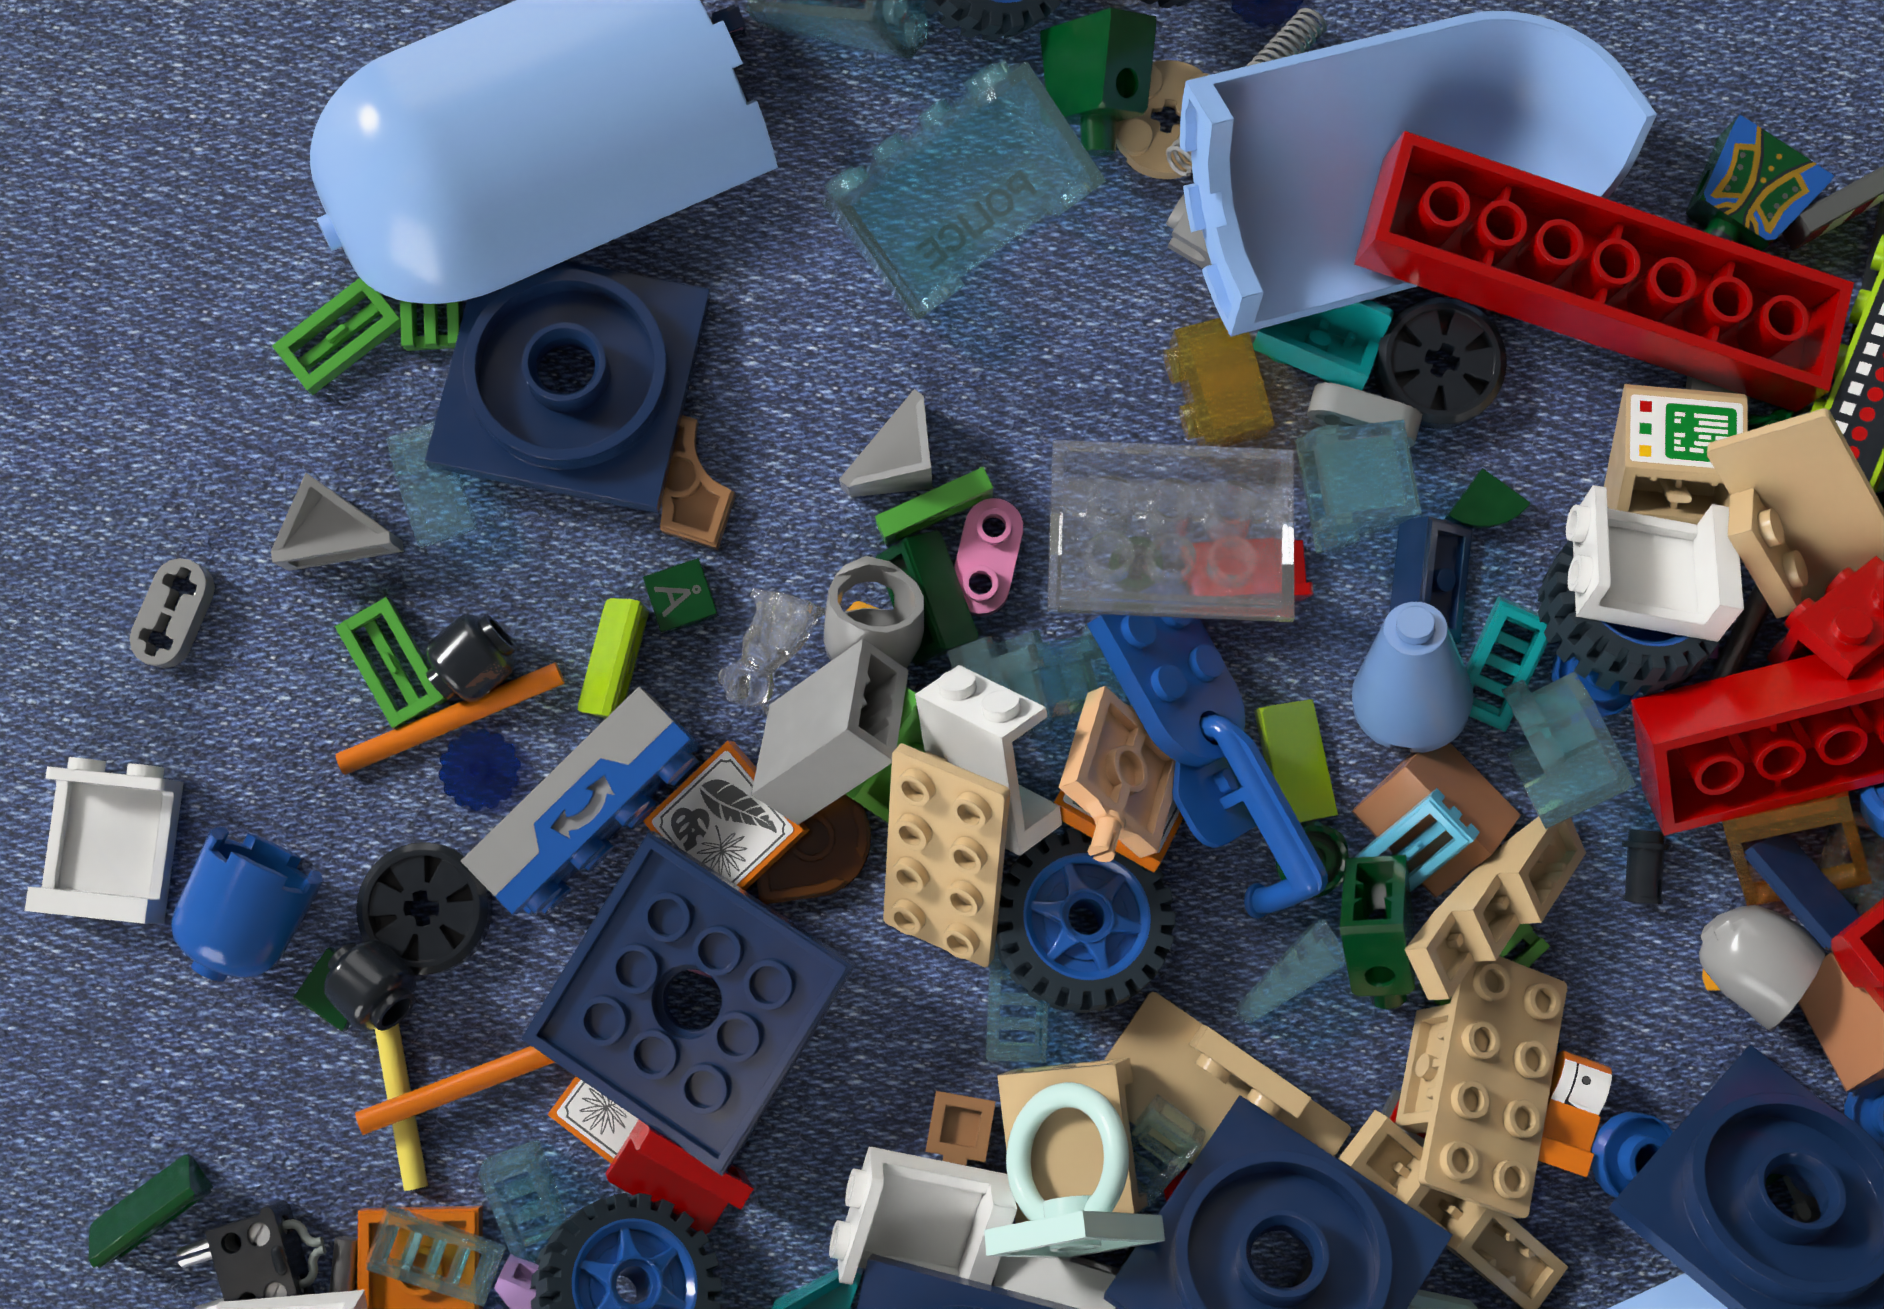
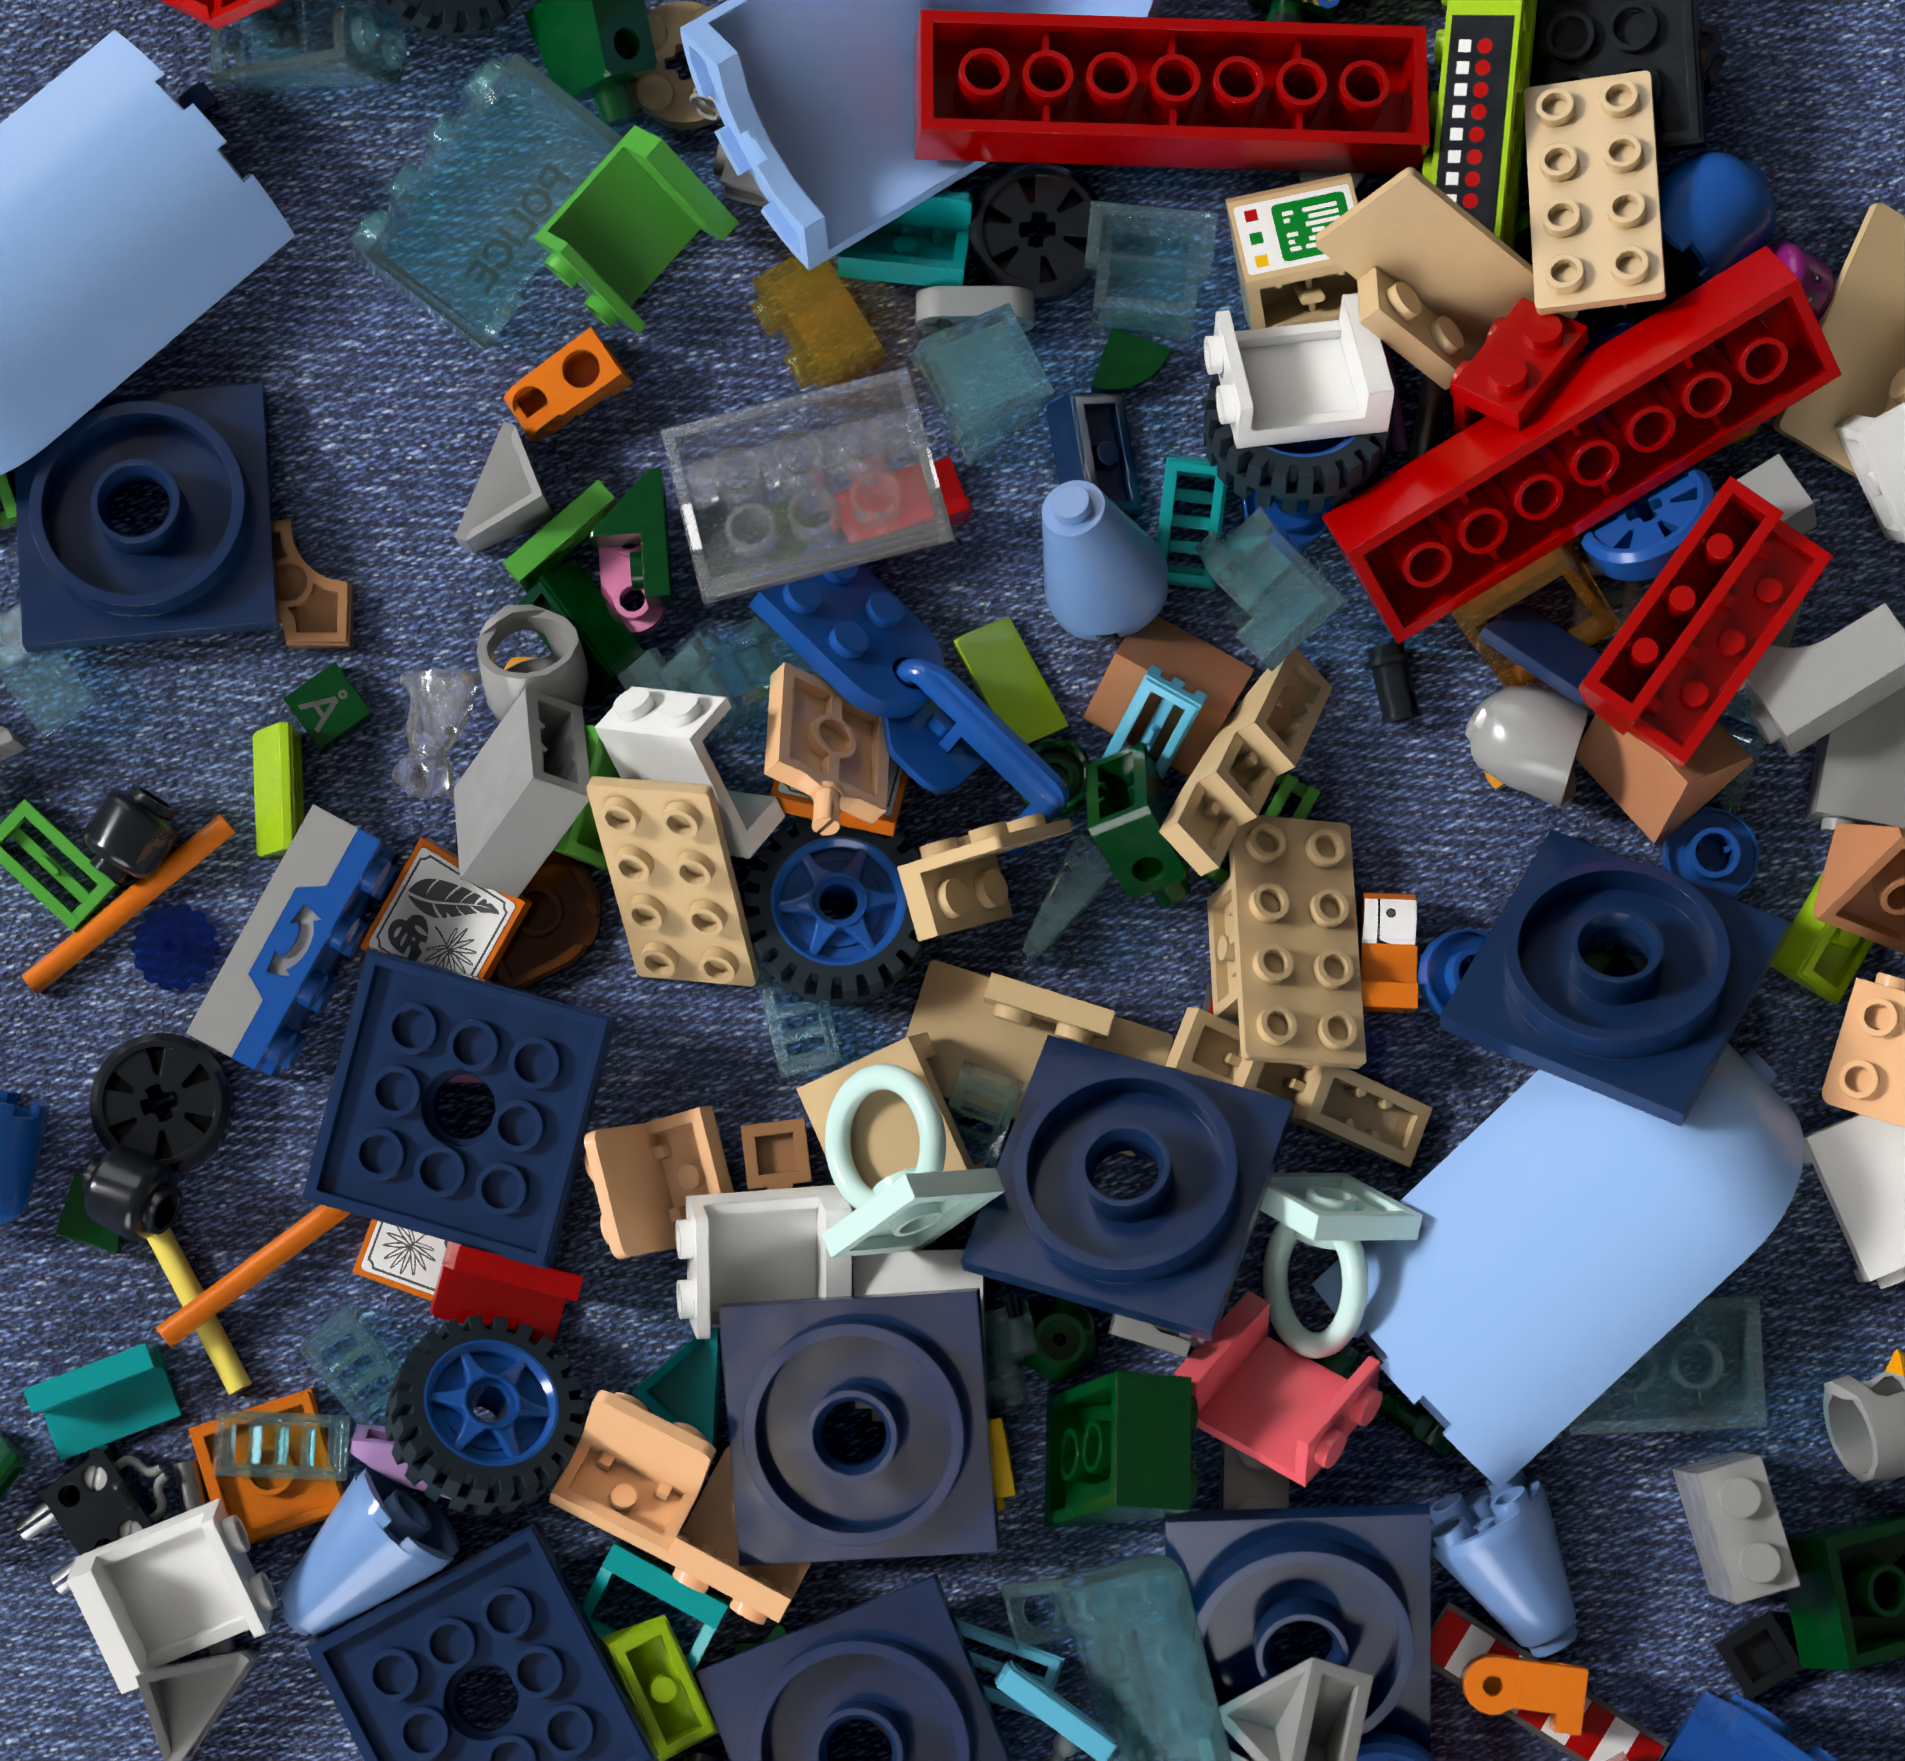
camera: 15 degrees left, 0 degrees up
(292, 1161) = (106, 1400): none -> teal panel
(842, 1111) = (648, 1172): none -> light nougat bracket
(978, 373) = (566, 385): none -> orange leg
(1013, 517) = (642, 521): none -> dark green slope
(1079, 246) = (629, 225): none -> bright green panel
(1201, 929) = (962, 882): none -> tan bracket
(1534, 425) = (1148, 267): none -> clear light blue plate

